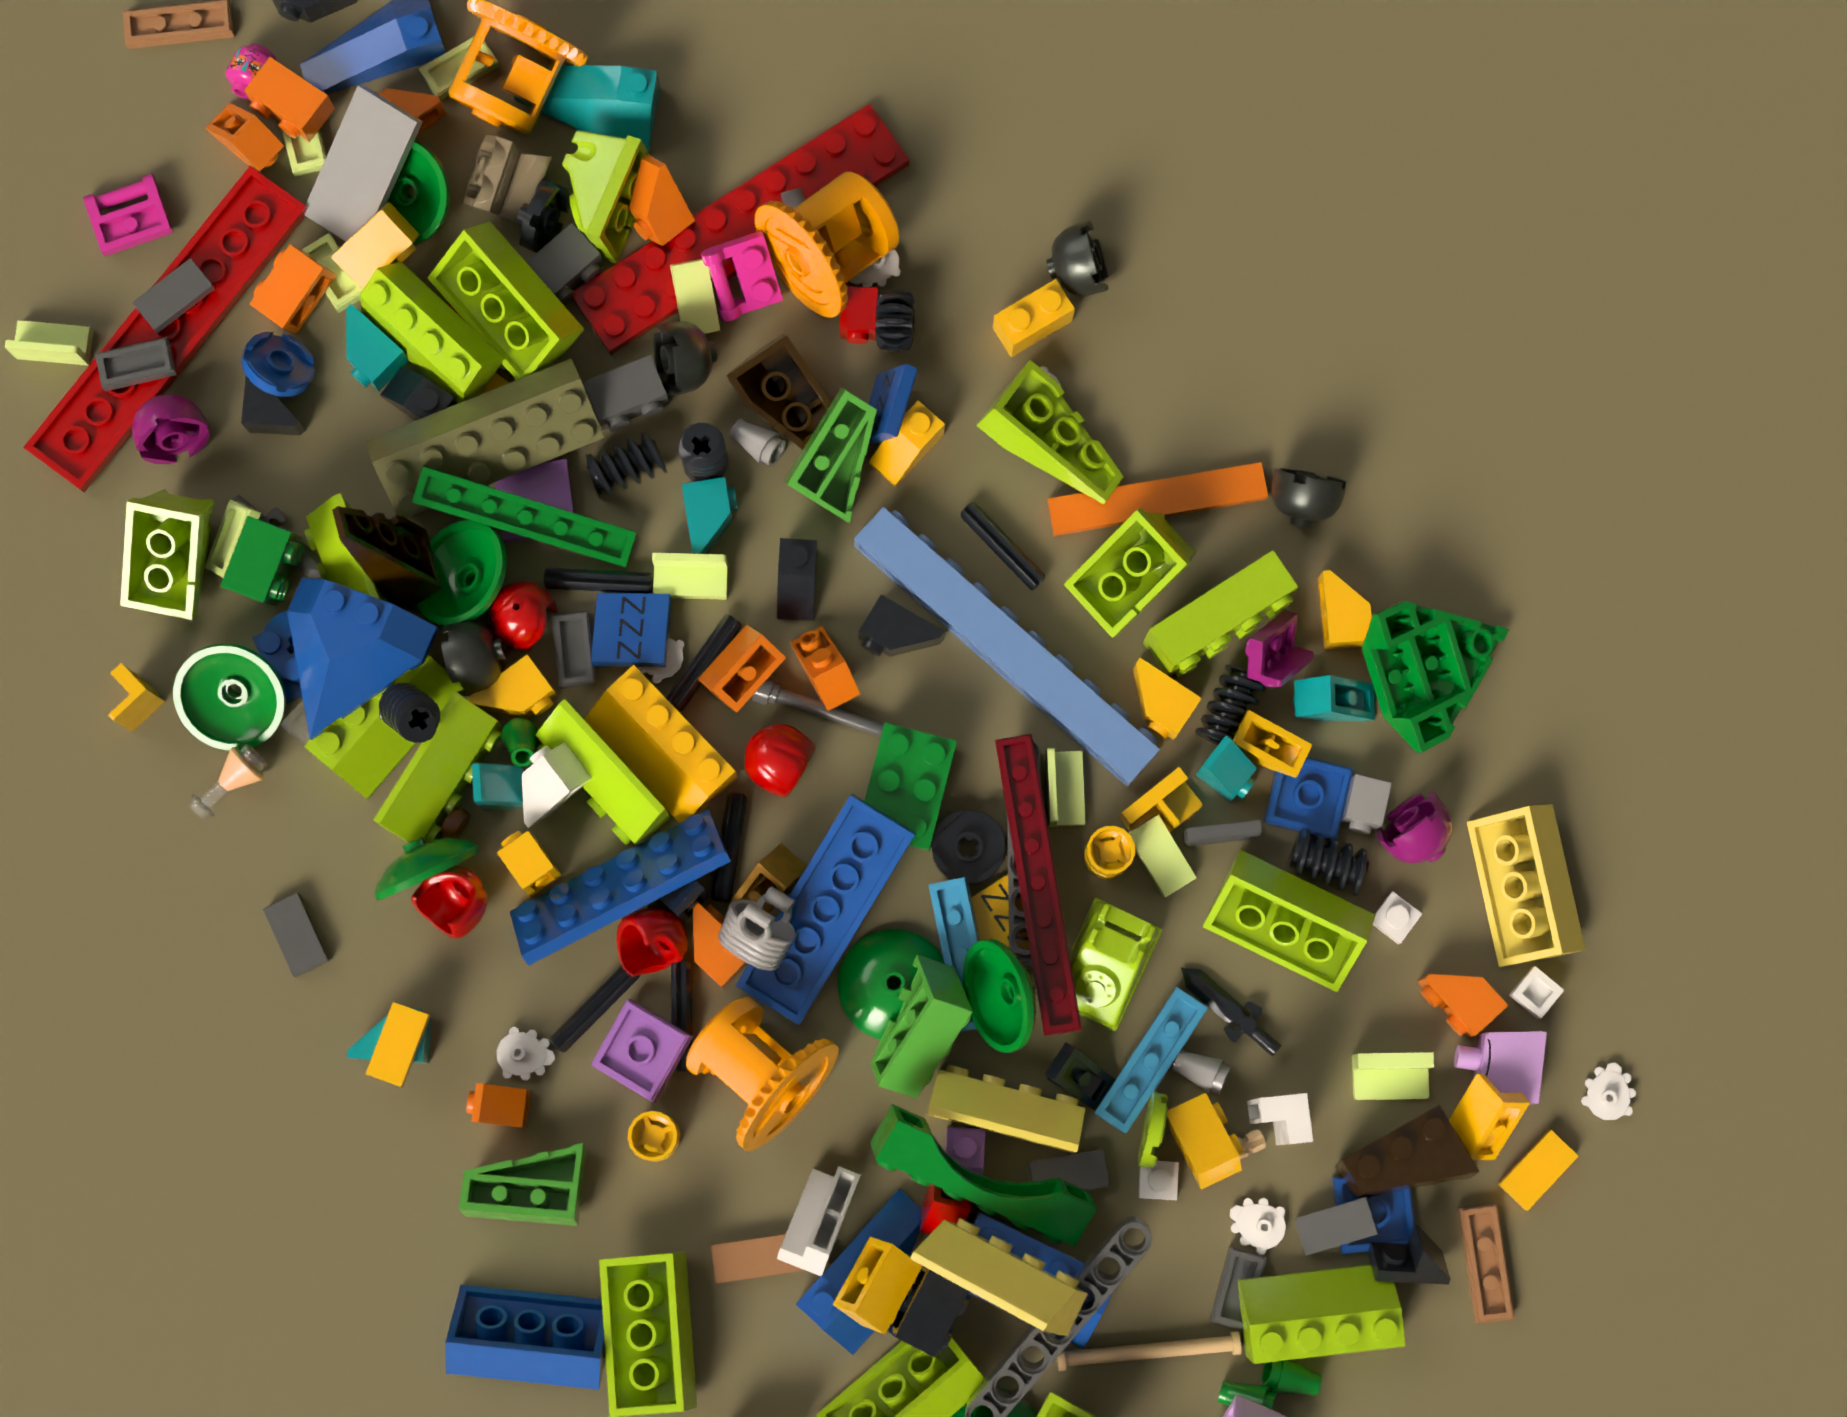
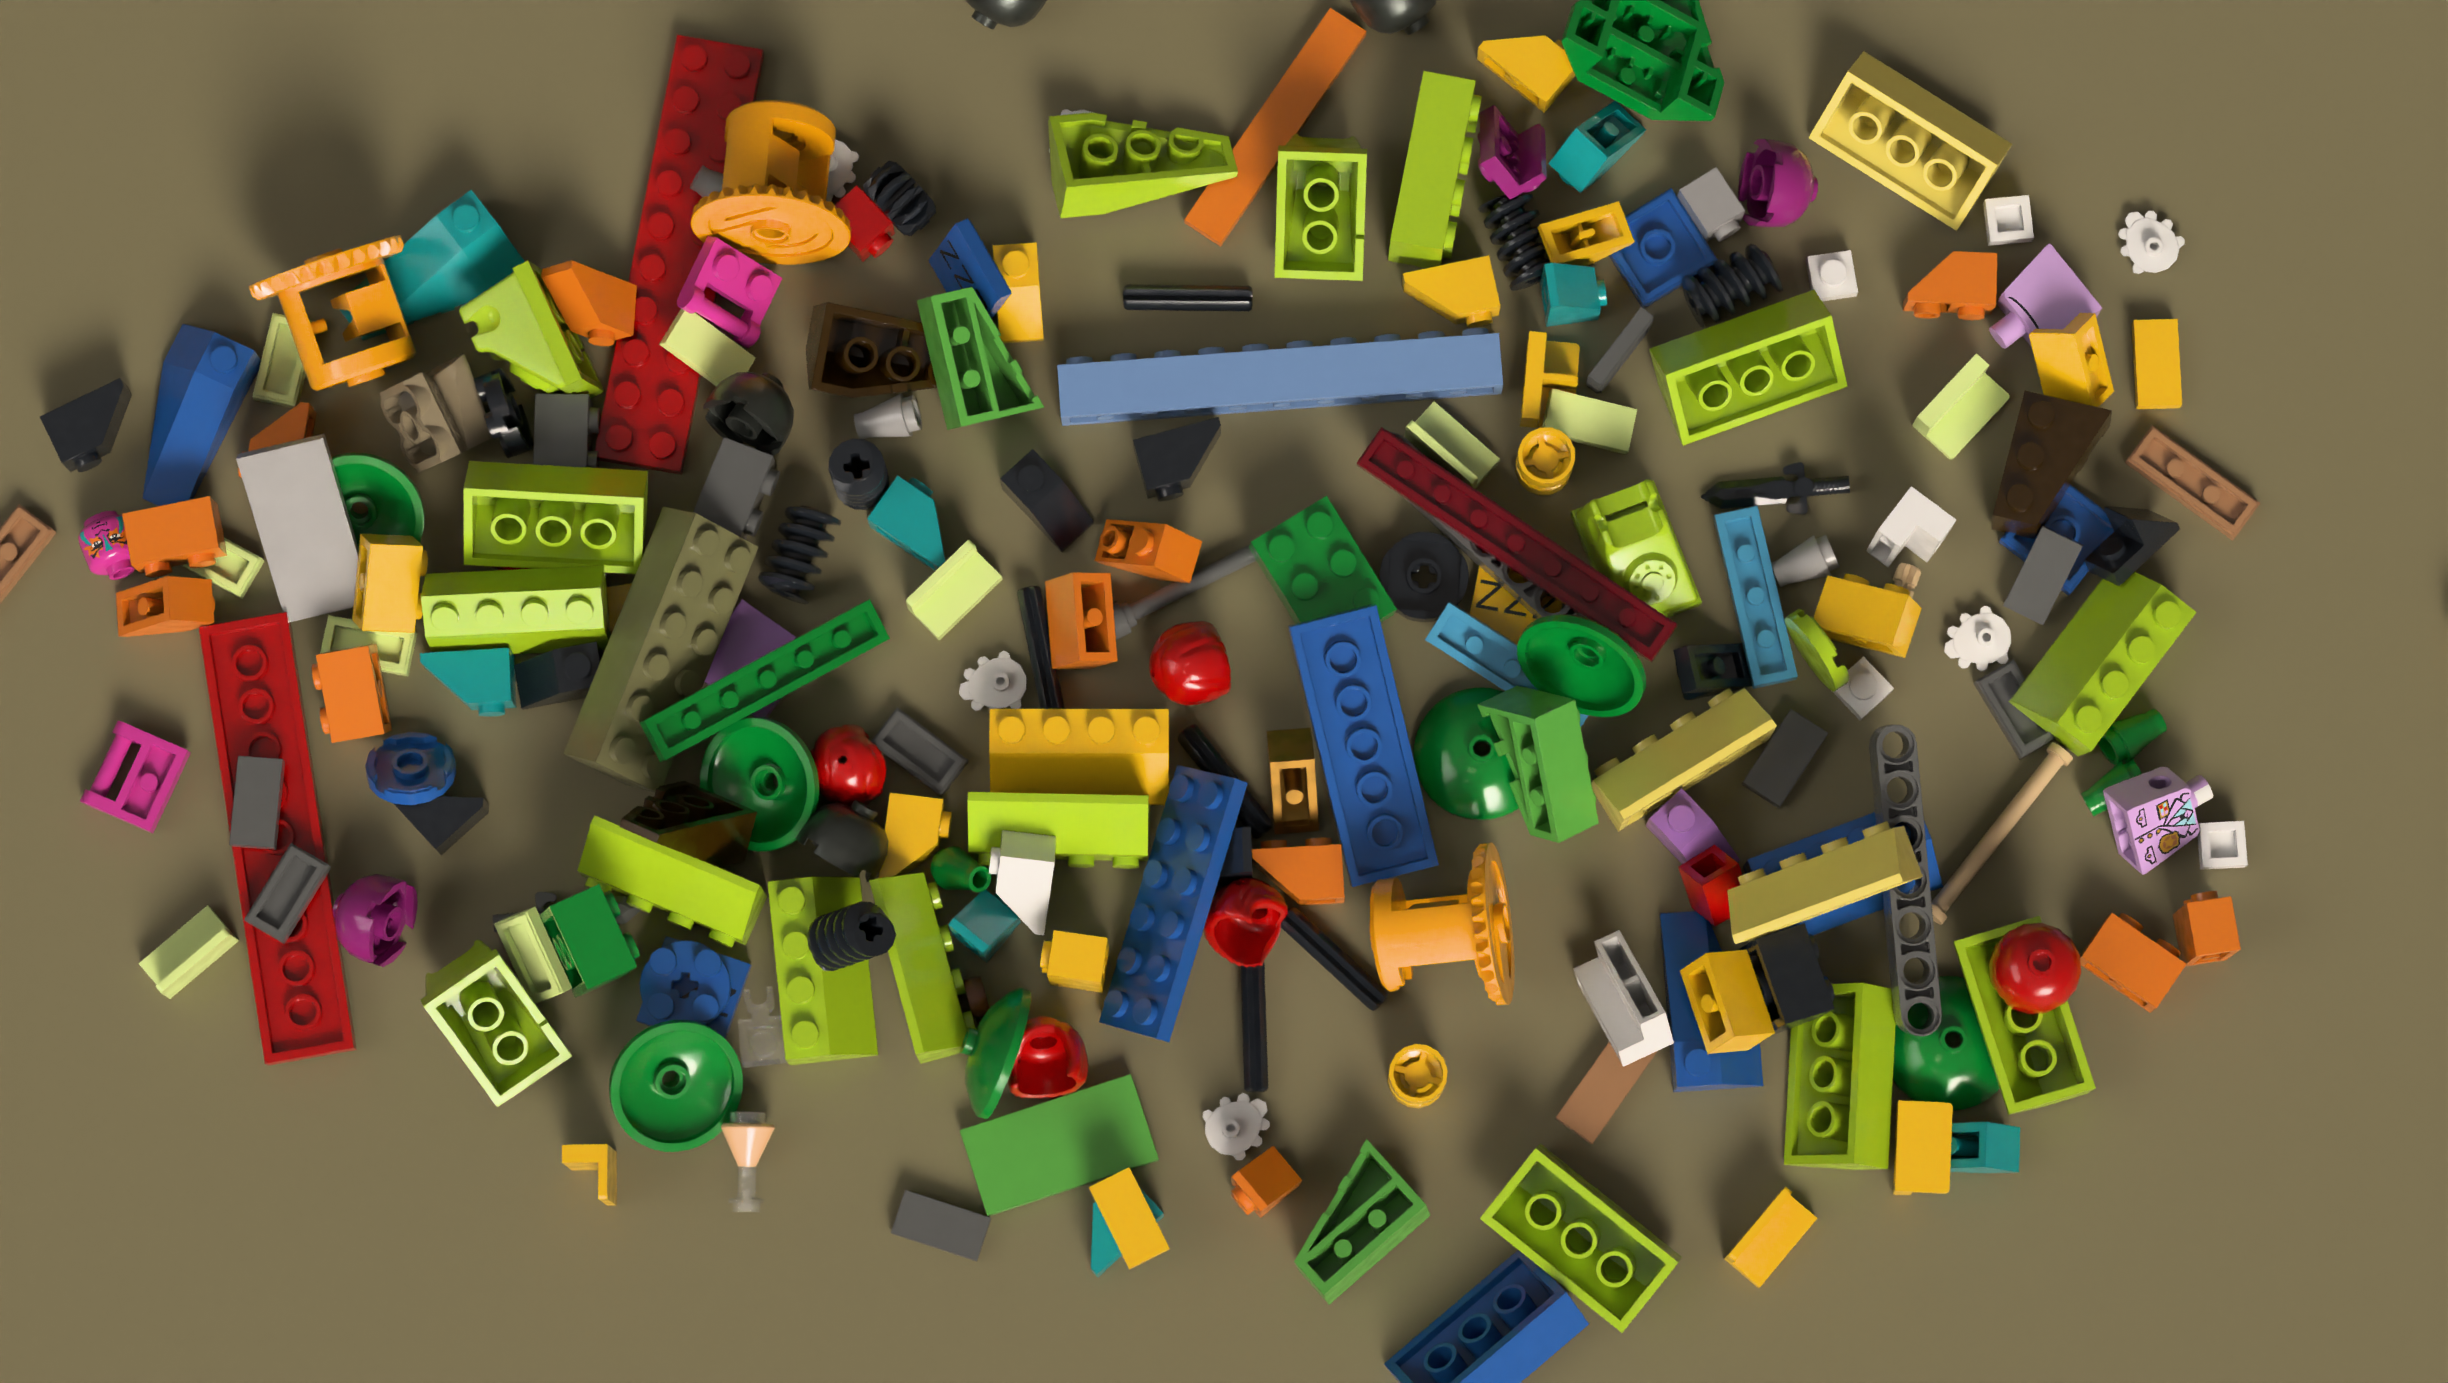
camera: 40 degrees left, 0 degrees up
(350, 648) = (737, 936): blue wedge -> none
(411, 959) = (1059, 1145): none -> bright green tile
(598, 580) = (878, 673): black axle -> none
(631, 630) = (952, 685): blue tile -> none
(641, 1050) = (1331, 1019): medium lavender tile -> none
(754, 934) = (1331, 818): light grey piece -> none
(1033, 318) = (1013, 78): yellow brick -> none
(1049, 1205) = (1796, 797): green arch -> none

